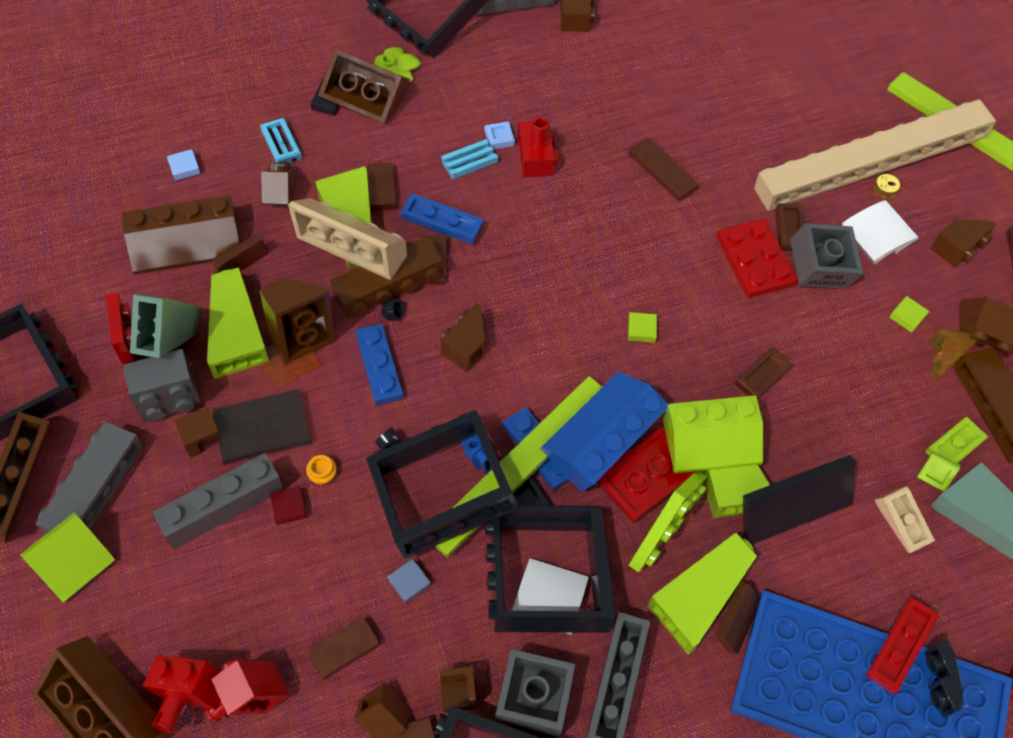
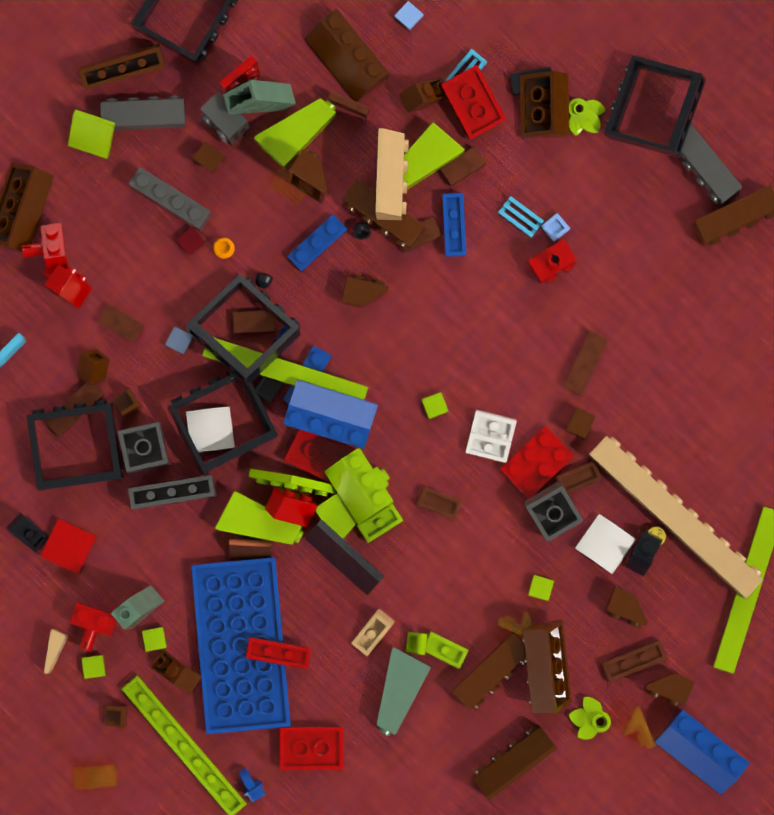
camera: 70 degrees right, 25 degrees up
(261, 426) = (235, 193): clear smoke tile -> none
(318, 142) = (473, 102): none -> red plate
(435, 478) = (253, 322): none -> copper tile
(702, 532) = (291, 506): none -> red brick
(705, 287) = (491, 436): none -> white slope
(730, 196) = (580, 423): none -> reddish brown panel
(773, 457) = (380, 523): none -> lime plate
(906, 202) = (643, 553): none -> black slope
(947, 690) = (255, 686): black slope -> none

